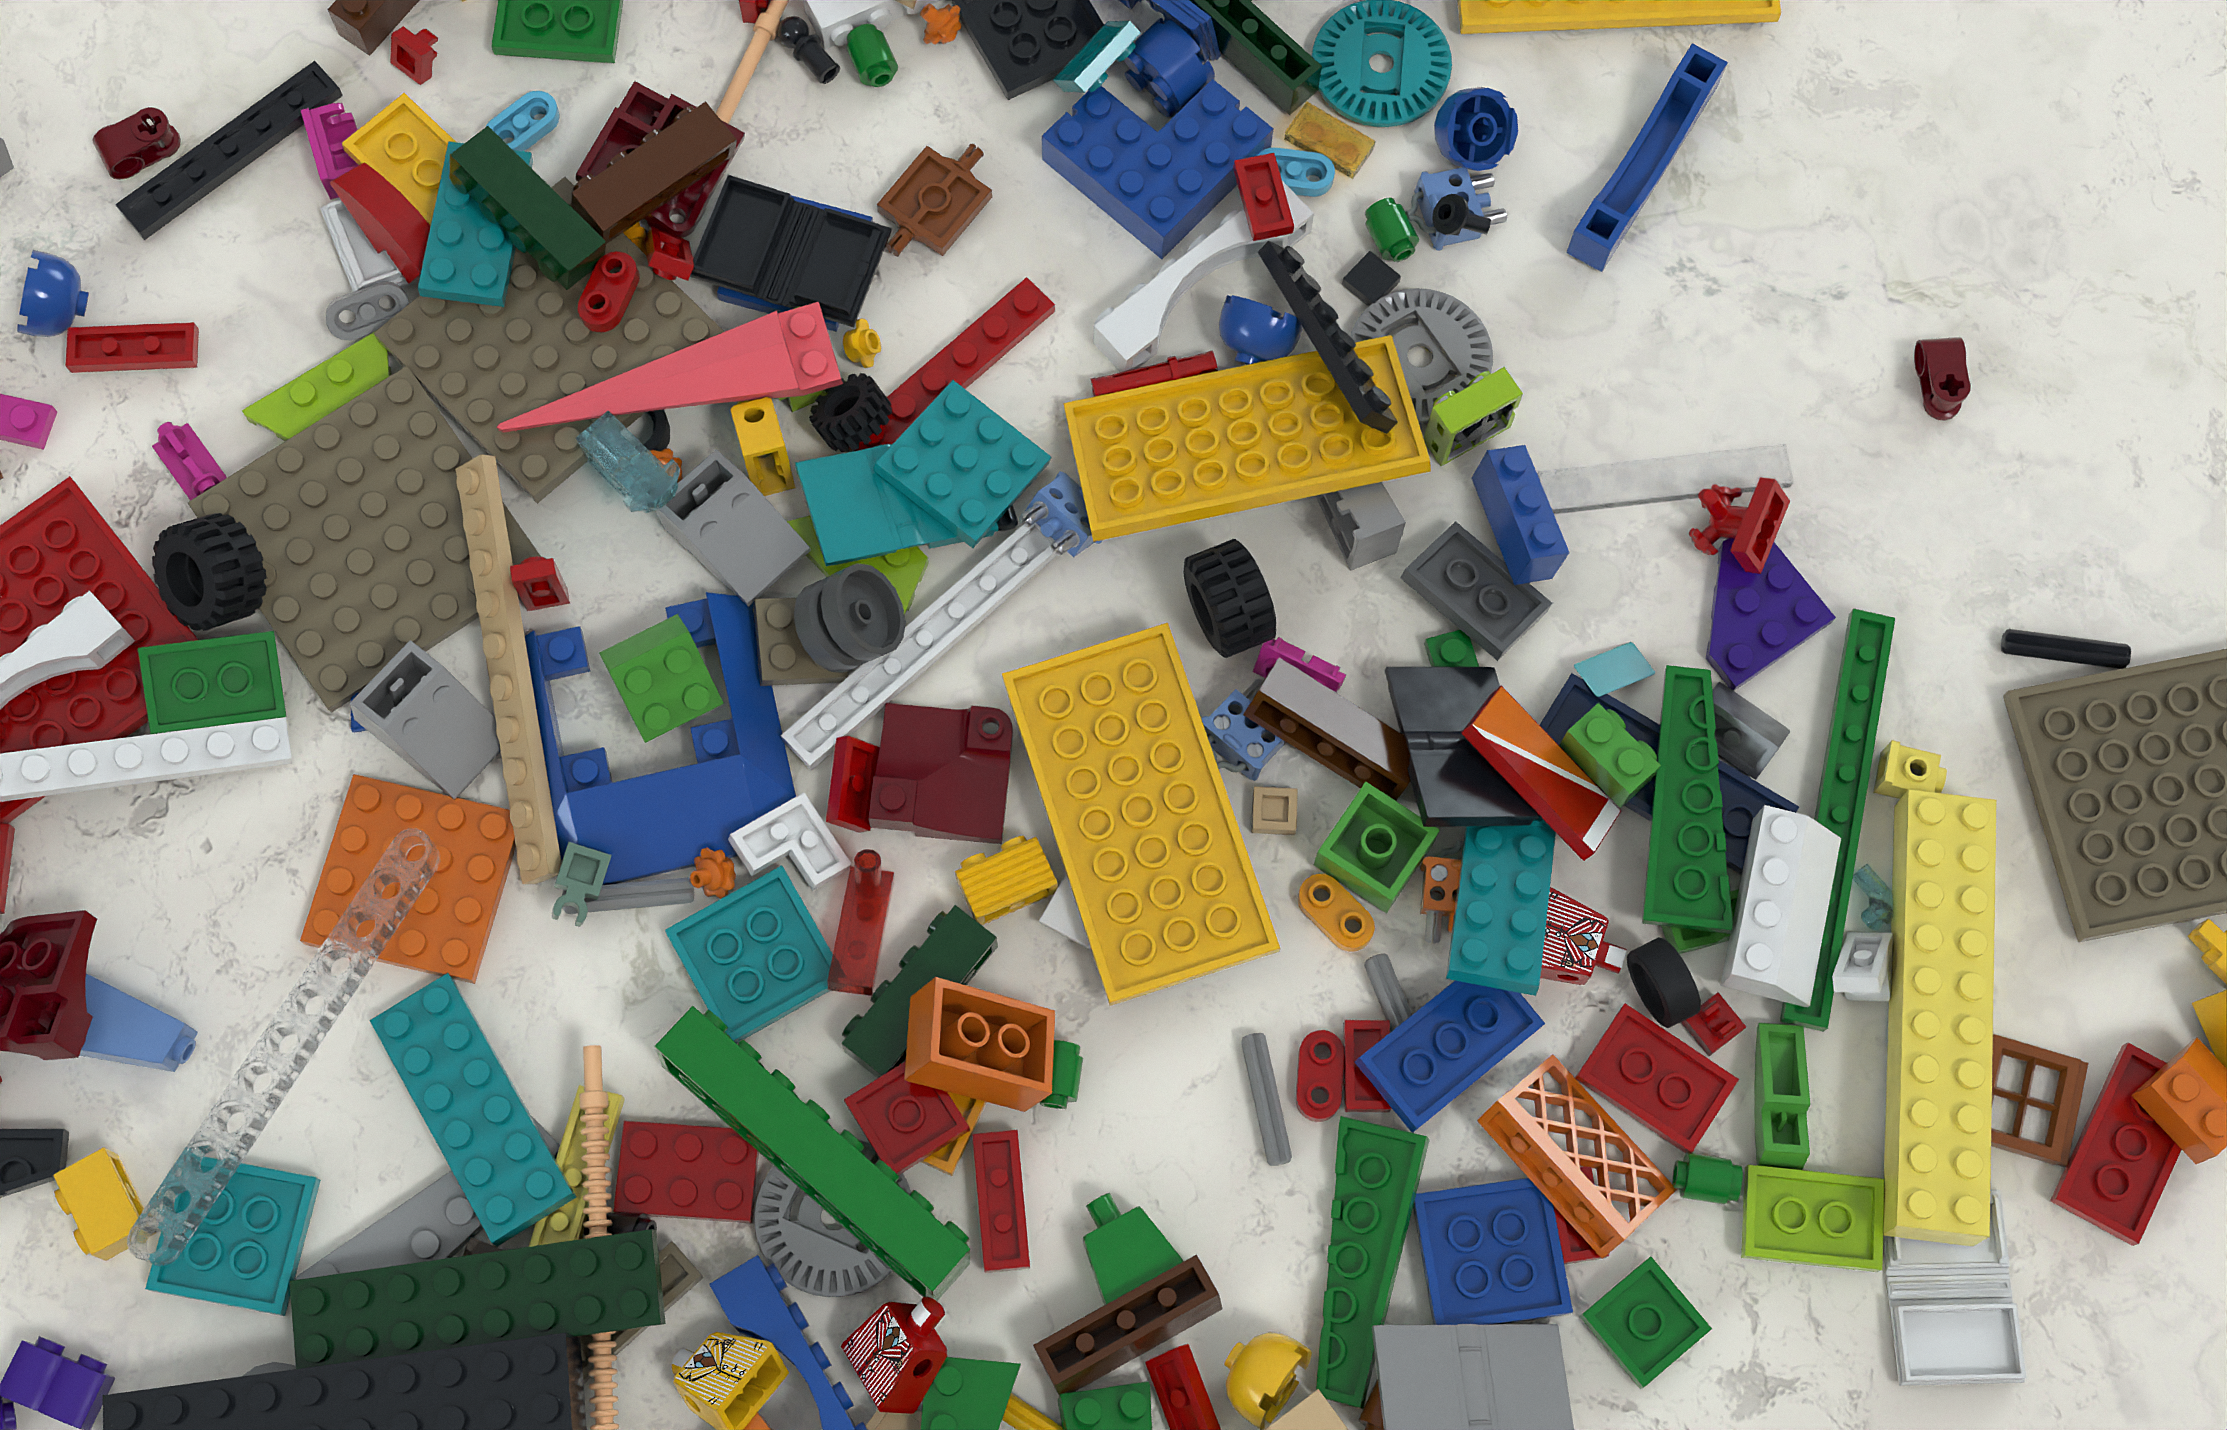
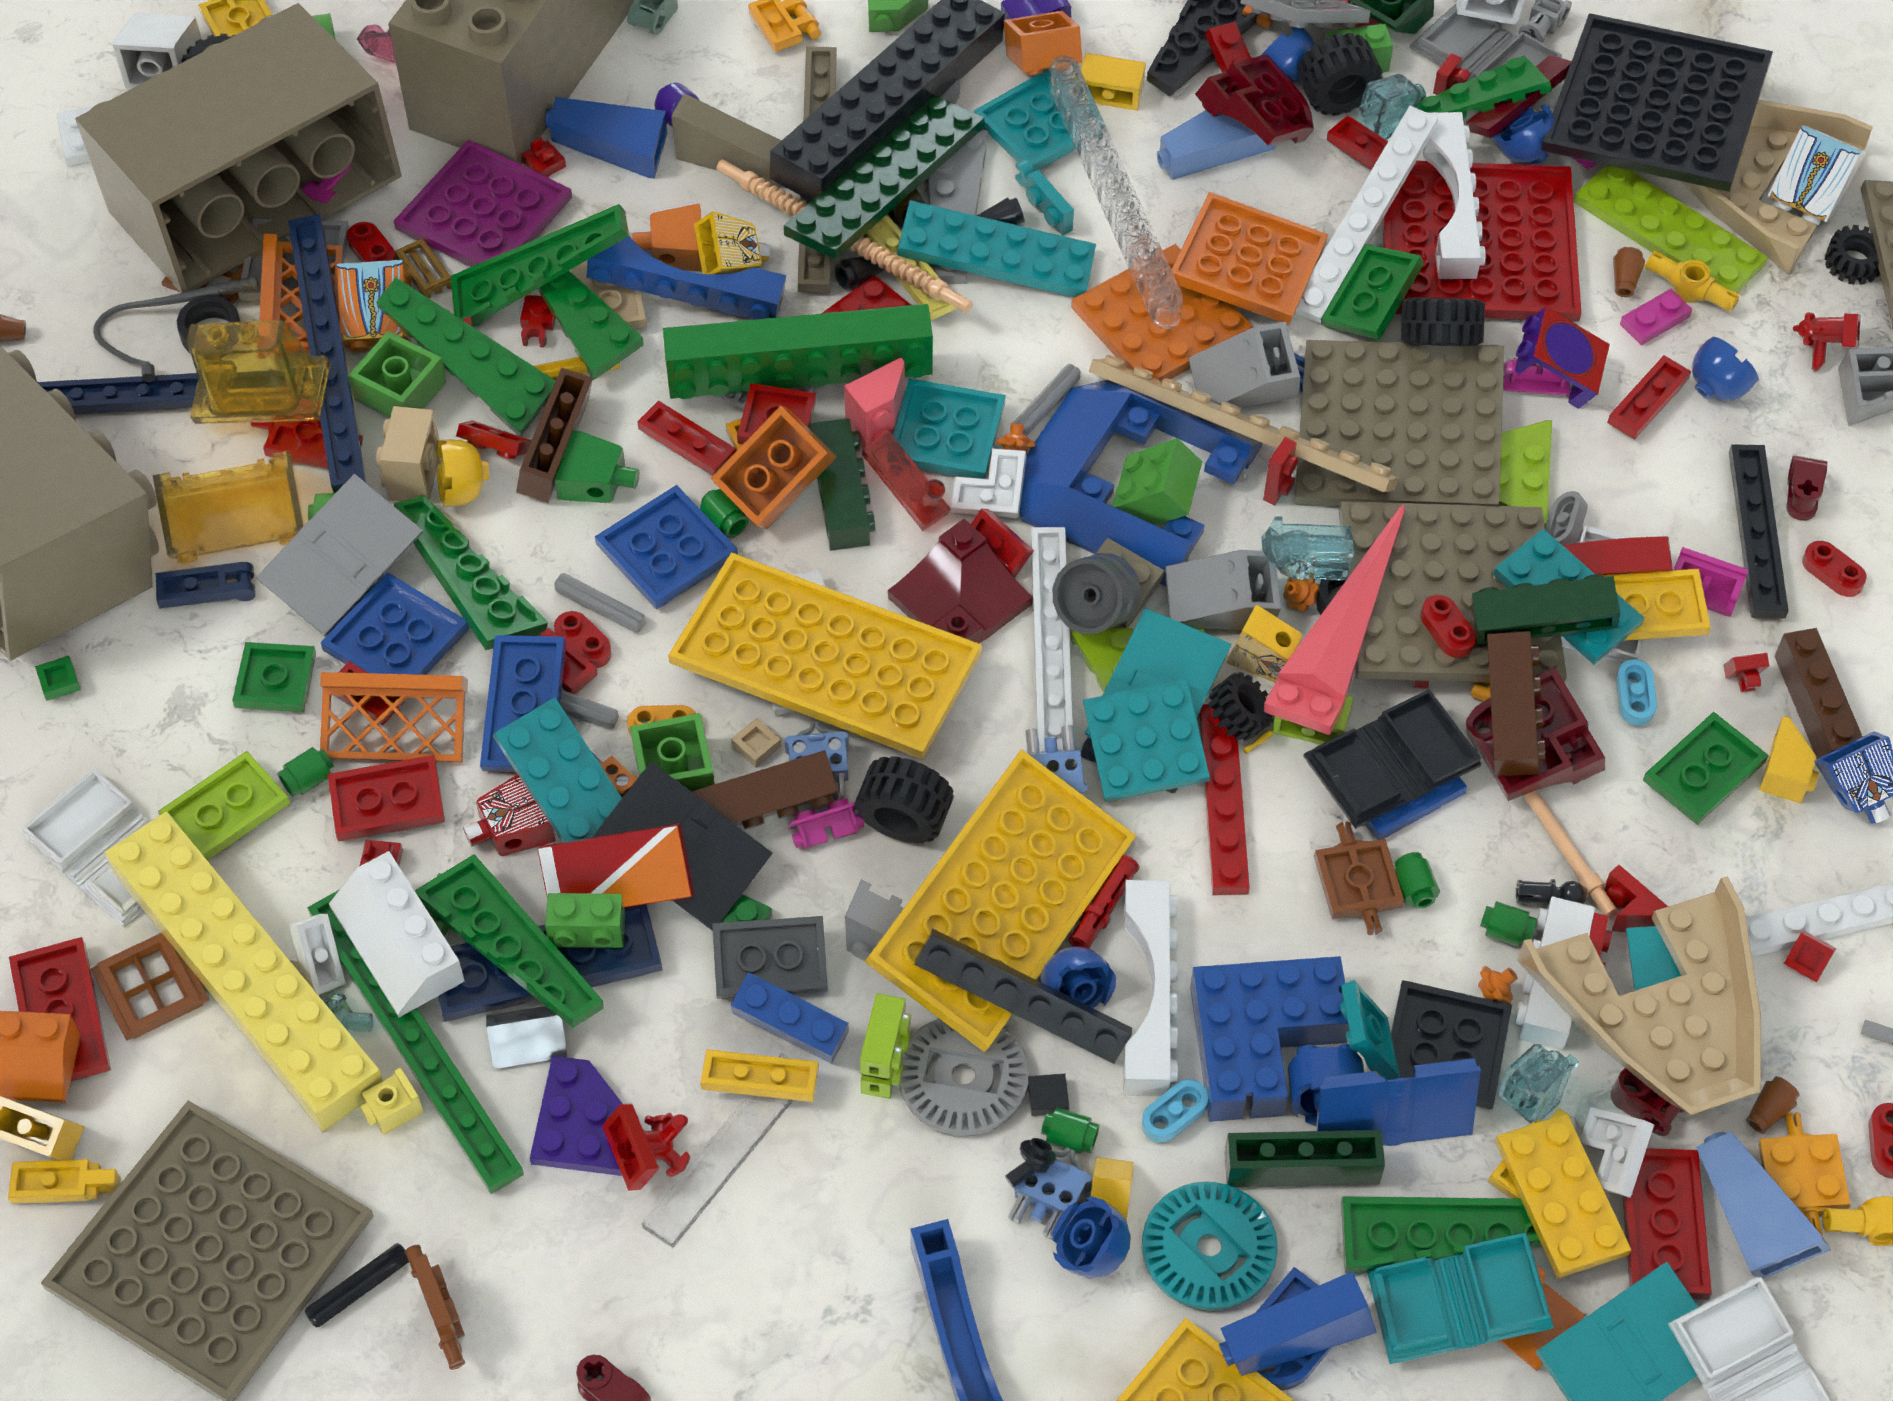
camera: 135 degrees right, 15 degrees down
(112, 1316) = (1039, 39): none -> orange brick
(156, 441) = (1565, 351): none -> dark purple panel
(219, 62) = (1832, 568): none -> red plate
(265, 840) = (1248, 258): none -> orange plate
(347, 1129) = (1045, 197): none -> teal plate
(413, 1151) = (1005, 211): none -> black cone
(581, 877) = (1074, 374): sand green plate -> none
(668, 255) = (1451, 687): red plate -> none
(799, 1027) = (875, 401): none -> coral slope
(862, 344) = (1295, 754): yellow plate -> none
(894, 152) = (1416, 880): none -> green brick
(898, 1353) = (652, 317): red torso -> none
(1006, 879) = (862, 567): yellow brick -> none
(1146, 1094) = (666, 546): none -> blue plate
(1263, 197) = (1163, 1045): red plate -> none
(1324, 134) = (1178, 1155): clear yellow plate -> none
(1403, 162) = (1113, 1182): none -> yellow slope
(1591, 494) = (759, 1075): none -> yellow plate
(1614, 669) = (638, 996): teal sticker -> none
(1663, 982) = (429, 835): black tyre -> none
(1781, 1097) = (301, 850): bright green slope -> none
(2030, 546) = (439, 1304): none -> dark orange plate

